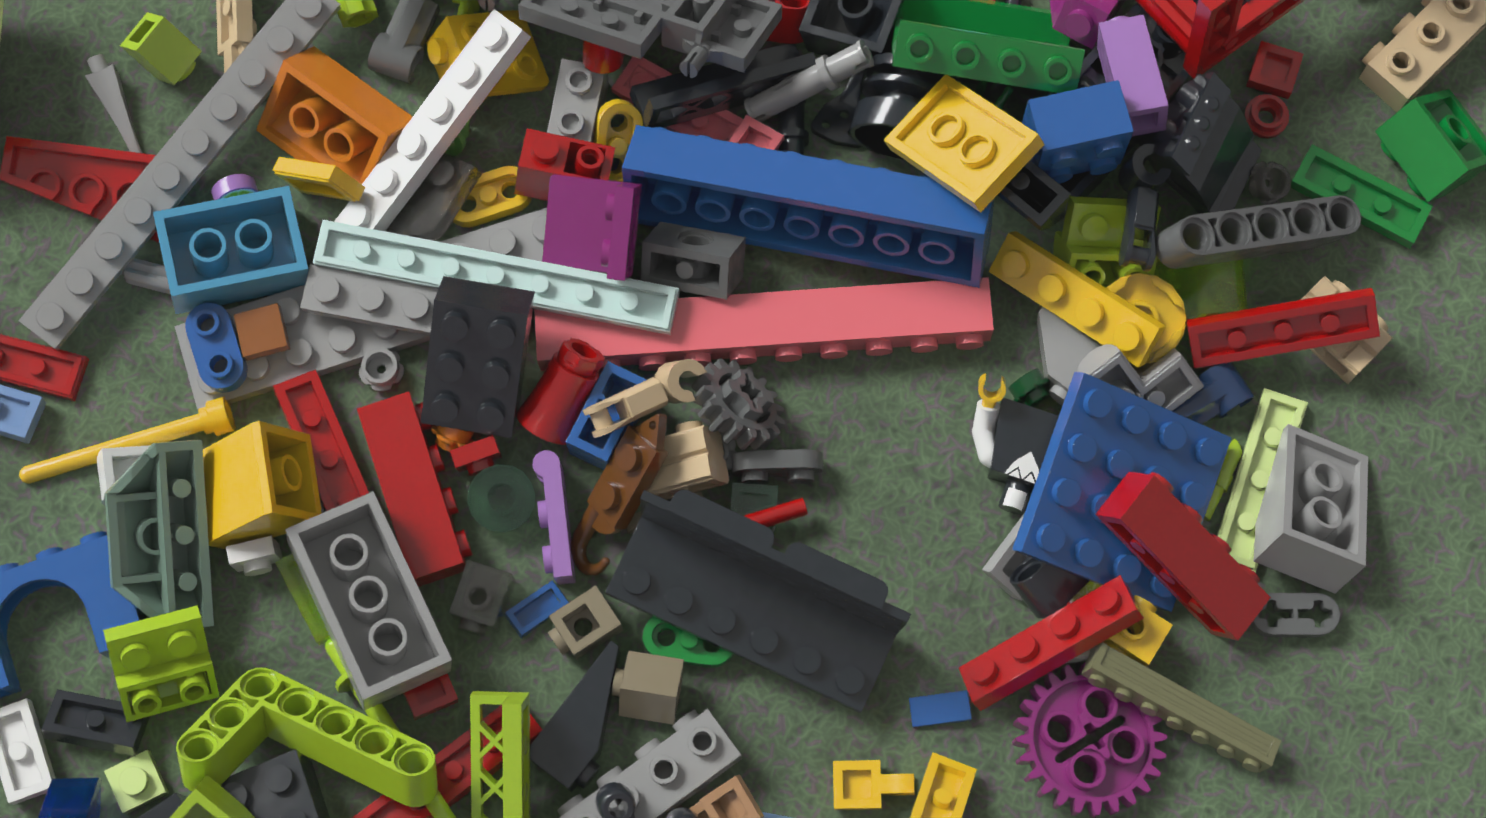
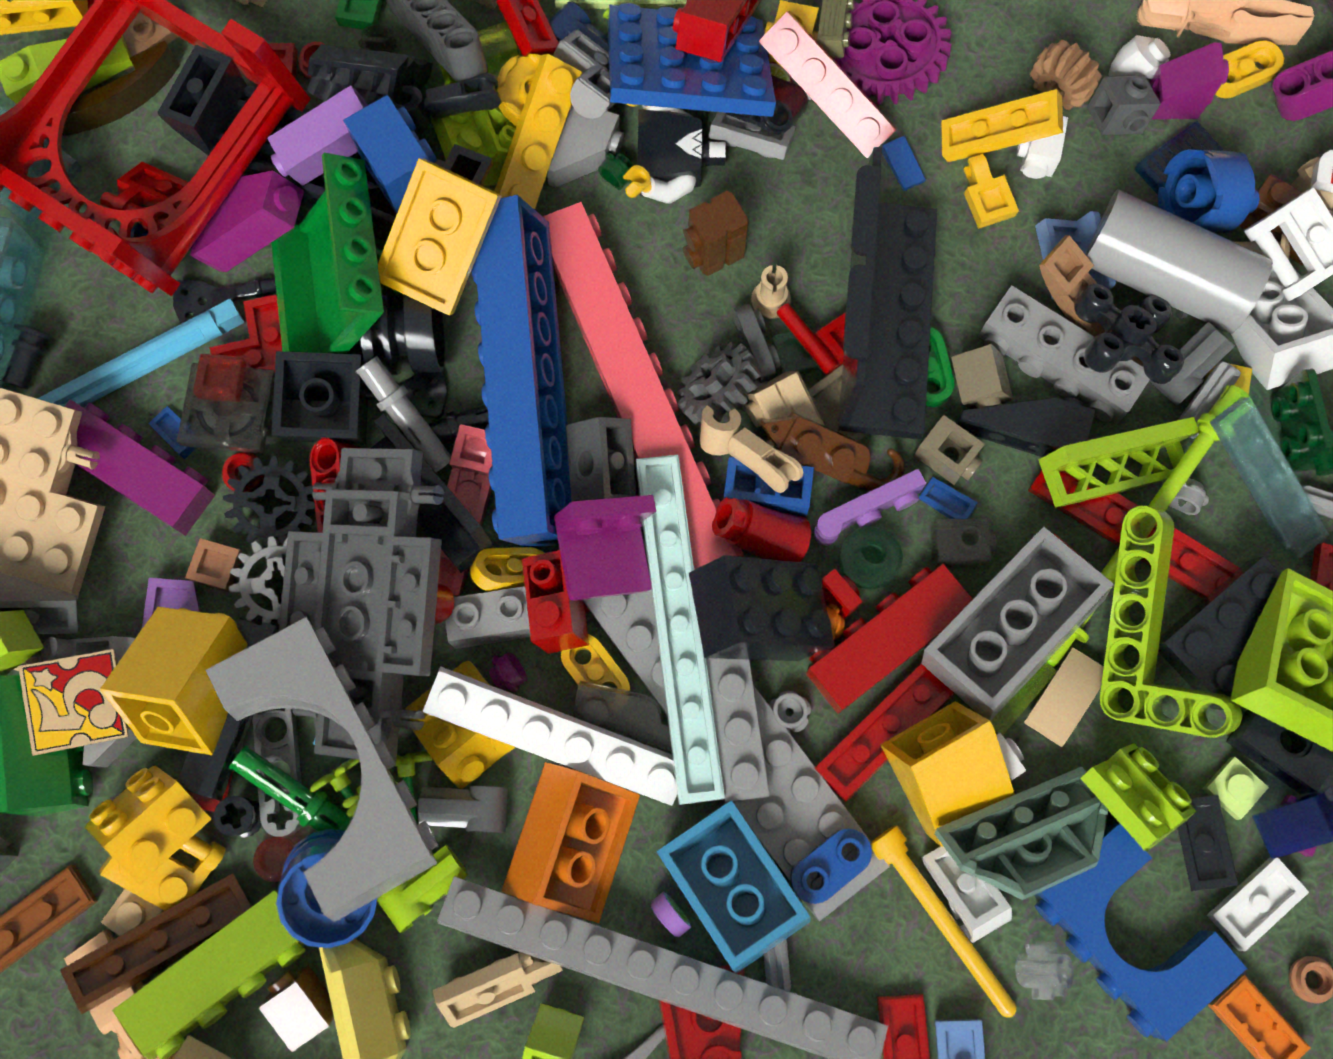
camera: 110 degrees left, 0 degrees up
(44, 515) = (1044, 970): none -> clear gear
(262, 331) = (801, 827): dark orange tile -> none
(288, 642) = (1066, 697): none -> tan slope
(318, 179) = (637, 830): yellow tile -> none
(520, 110) = (507, 672): none -> magenta plate
(827, 504) = (771, 292): none -> tan pin
(906, 456) = (715, 234): none -> reddish brown brick

